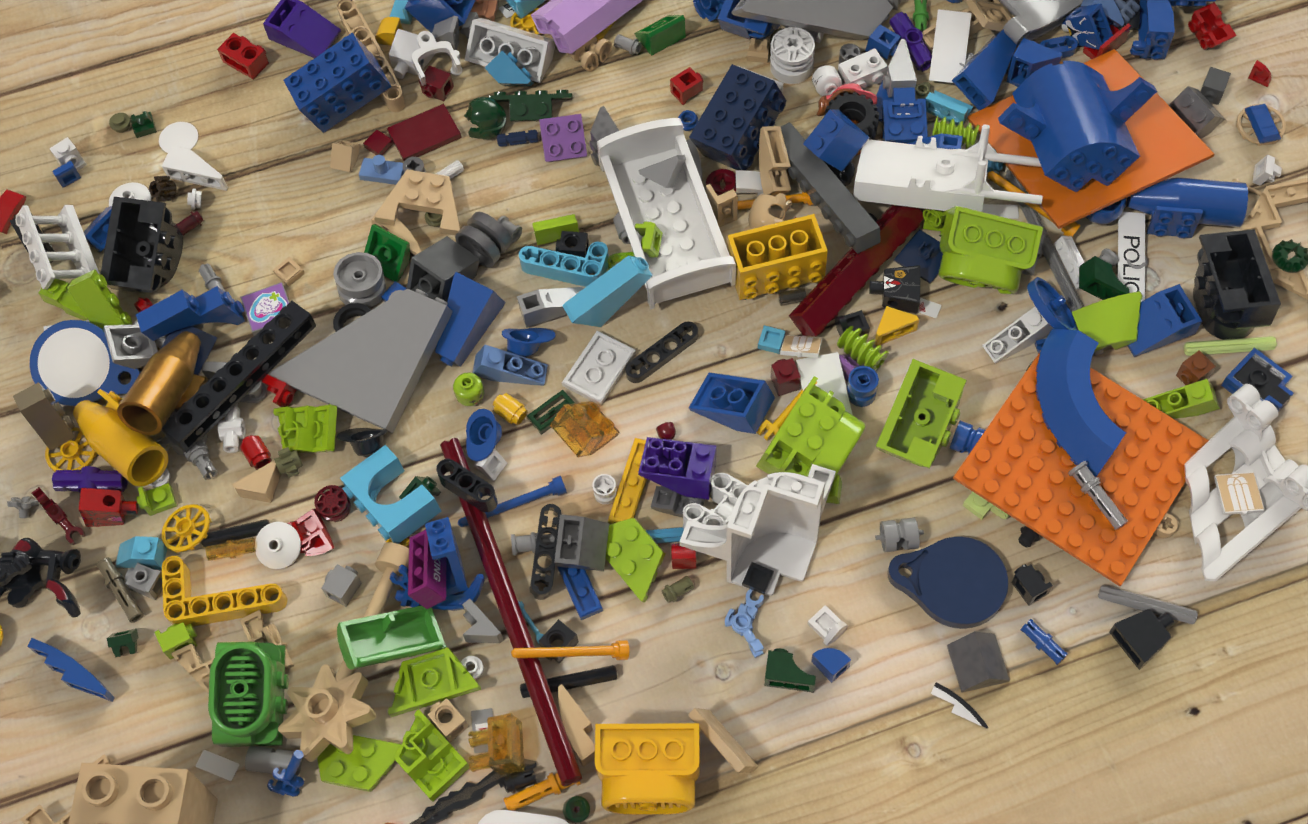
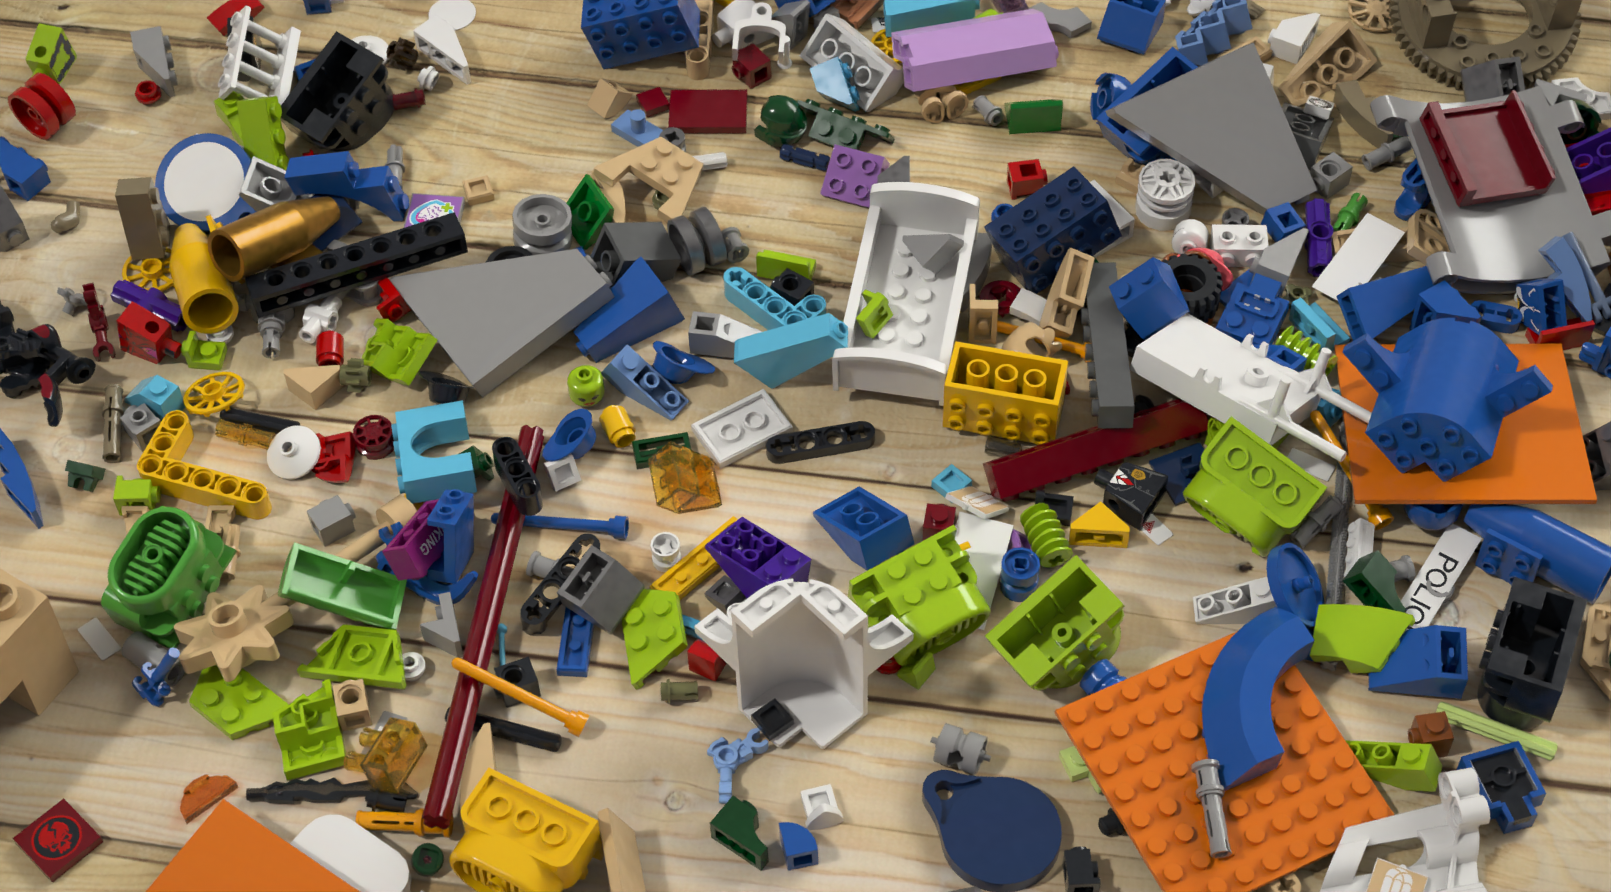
camera: 25 degrees right, 10 degrees down
(666, 431) = (772, 523): dark red hinge -> none

